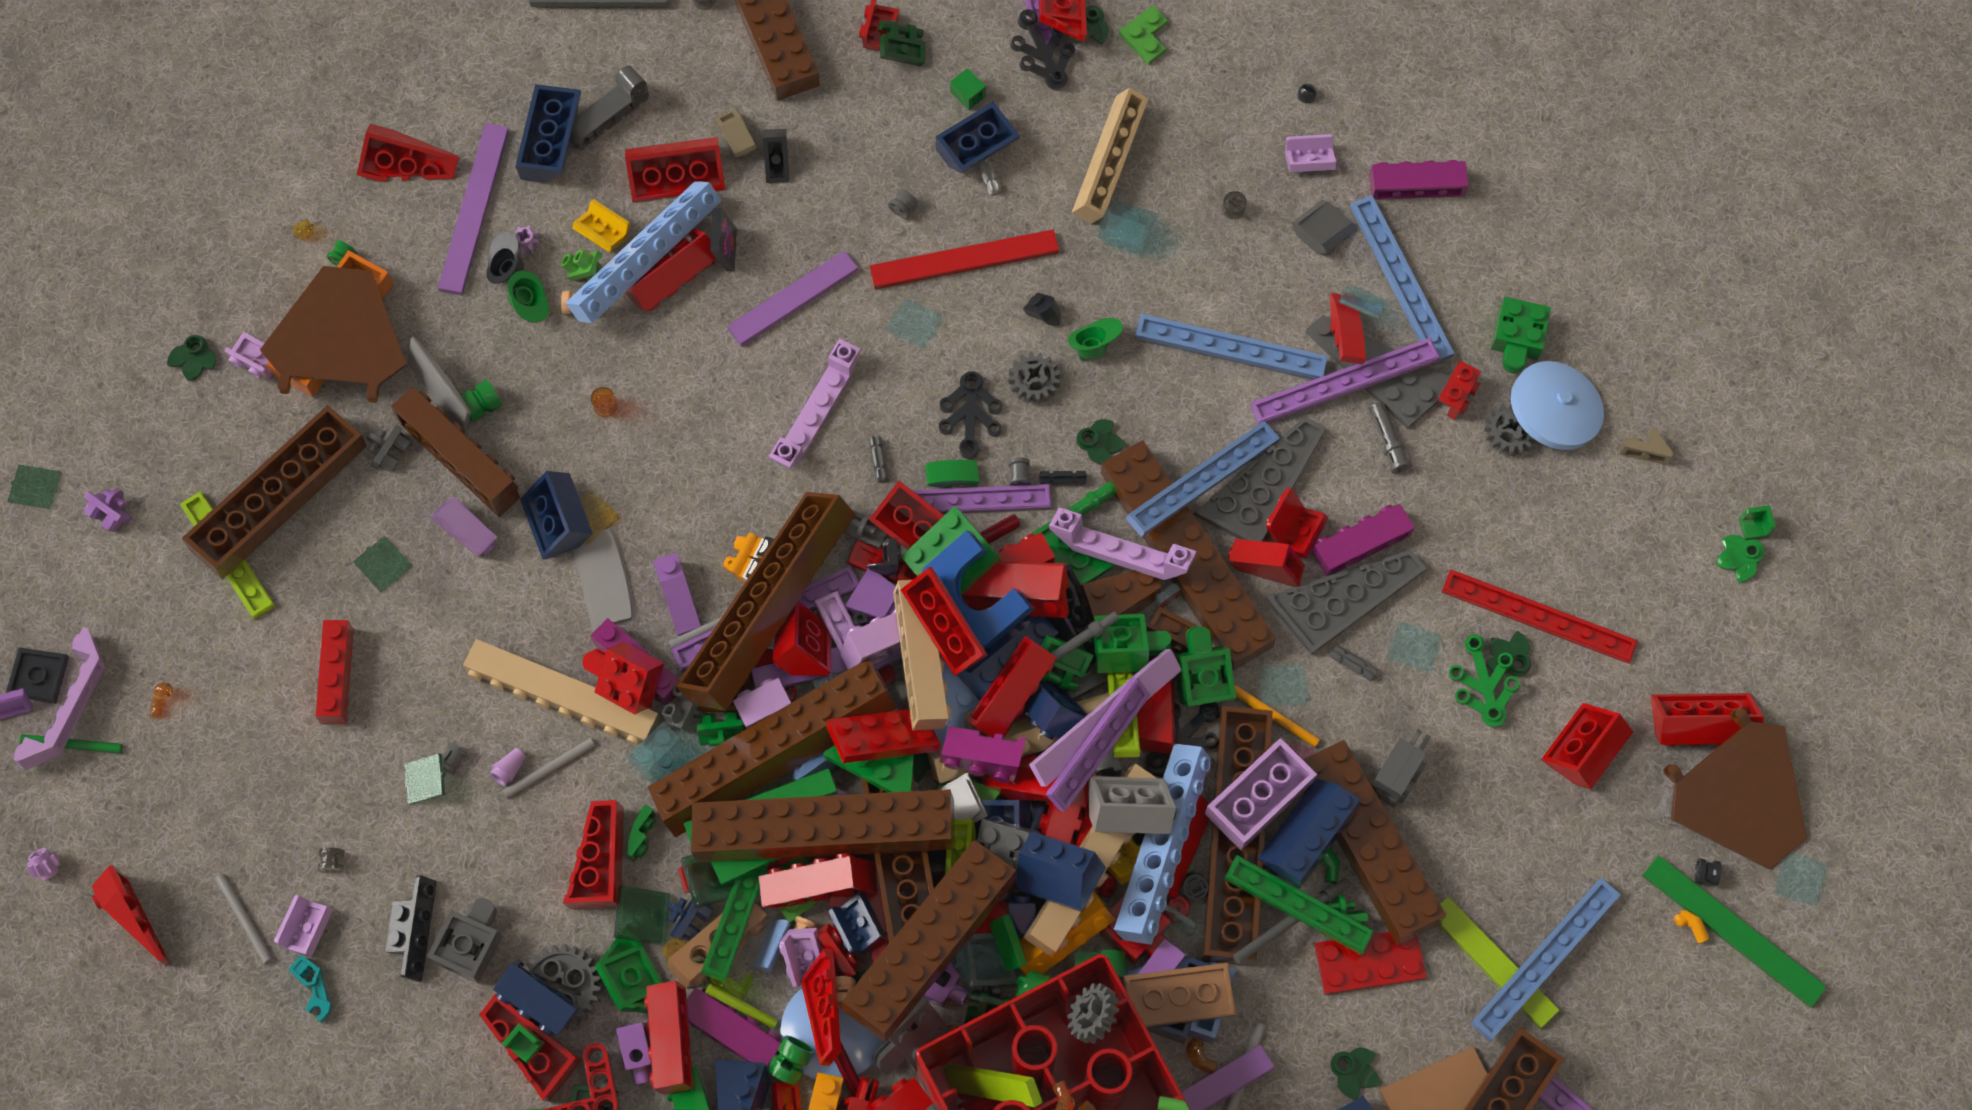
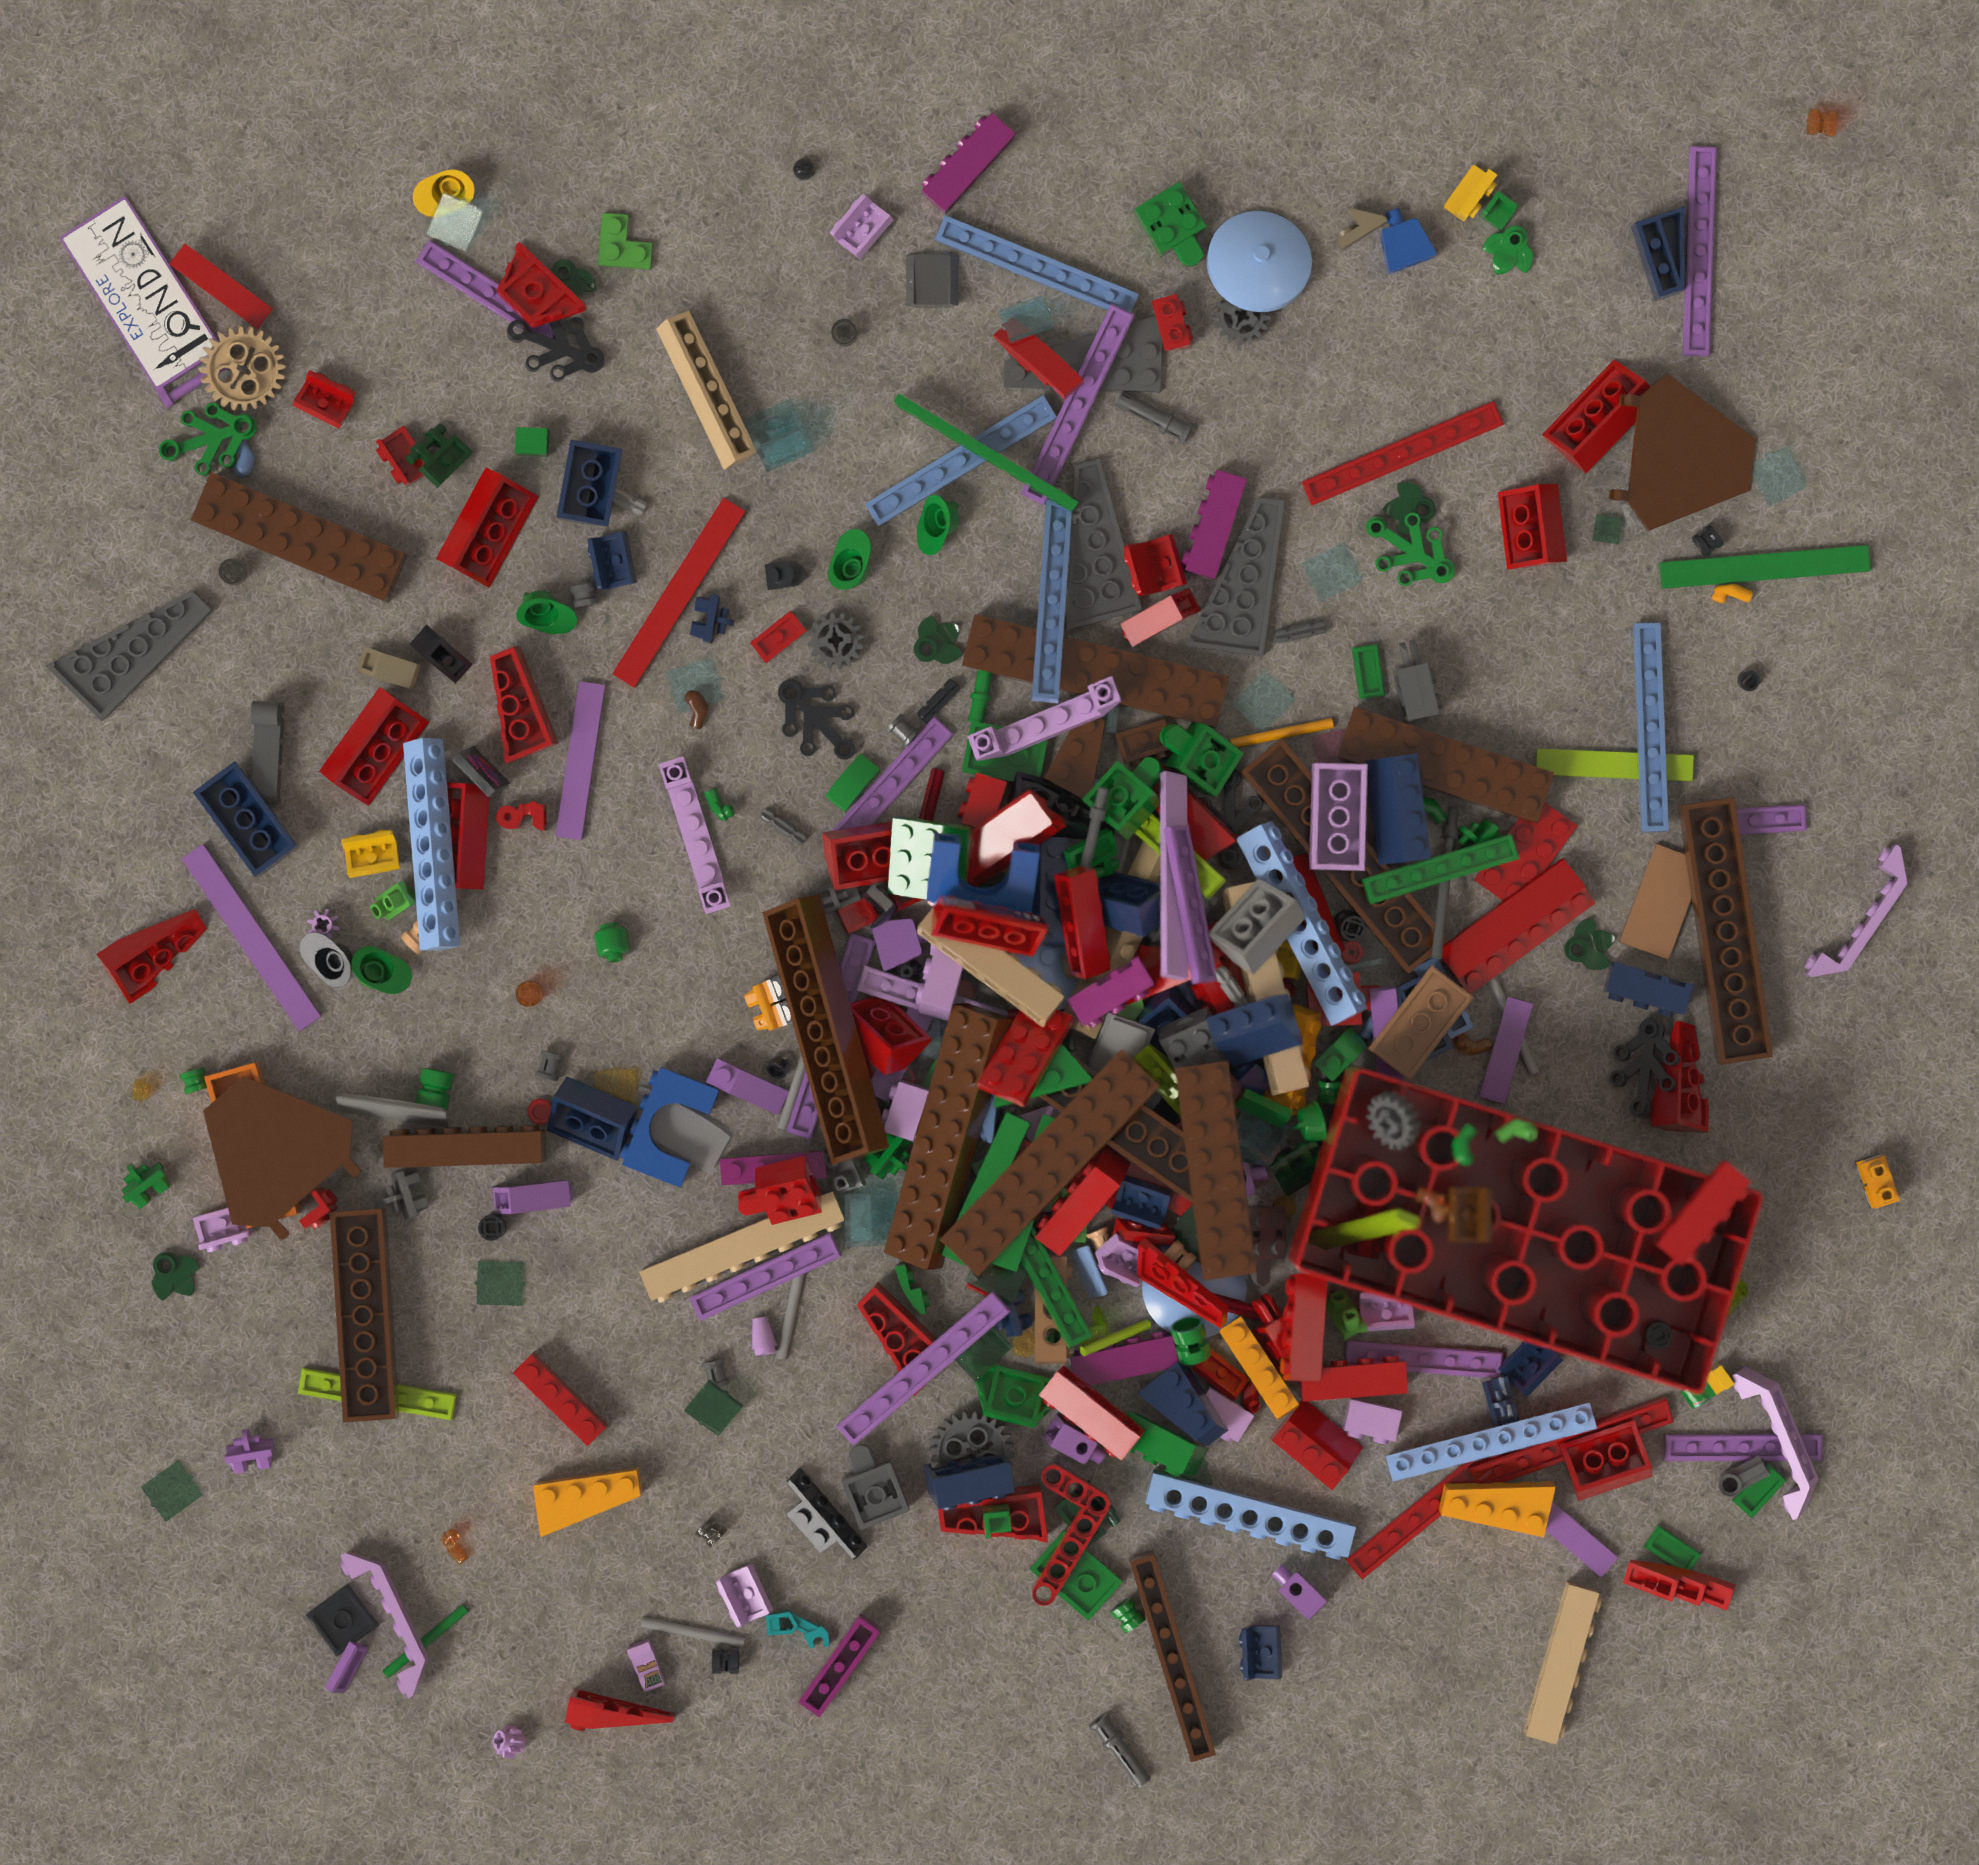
camera: 40 degrees left, 20 degrees up
(188, 907) = (646, 1664): none -> lavender leg
(241, 959) = (725, 1661): none -> black wheel
(250, 287) = (140, 1180): none -> green hips
(270, 747) = (579, 1497): none -> light orange wedge
(310, 1040) = (839, 1665): none -> magenta brick
(317, 399) = (320, 1214): none -> red bracket
(421, 524) = (496, 1227): none -> black wheel
(526, 480) = (539, 1111): none -> red tile
(554, 729) = (765, 1276): none -> medium lavender tile
(565, 564) = (643, 1152): none -> blue arch
(566, 458) = (549, 1065): none -> dark grey bush
(589, 888) = (923, 1368): none -> medium lavender tile
(690, 421) = (612, 942): none -> green head
(713, 599) = (775, 1071): none -> black hinge
(715, 291) = (513, 818): none -> red leg
(790, 228) = (520, 708): none -> red wedge
(849, 408) = (716, 805): none -> green arm
(866, 191) = (545, 614): none -> green piece
(886, 111) = (487, 527): none -> red slope
(902, 336) = (699, 707): none -> reddish brown arm
(941, 200) = (611, 561): none -> dark blue bracket
(970, 293) = (706, 630): none -> dark blue hips
(999, 341) = (778, 637): none -> red plate
(1070, 830) = (1230, 987): none -> light grey axle
(1125, 1080) = (1461, 1145): none -> green arm
(1177, 368) = (936, 522): none -> green piece
(1253, 352) = (985, 453): none -> green tile
(1314, 1002) = (1516, 926): none -> red slope
(1376, 733) = (1368, 671): none -> green tile
(1639, 798) = (1607, 529): none -> clear green tile
(1650, 1002) = (1752, 683): none -> black hinge
(1670, 485) = (1404, 243): none -> blue torso
(1747, 495) = (1469, 191): none -> yellow bracket
(1852, 649) = (1662, 252): none -> dark blue wedge
(1878, 679) = (1699, 251): none -> medium lavender tile

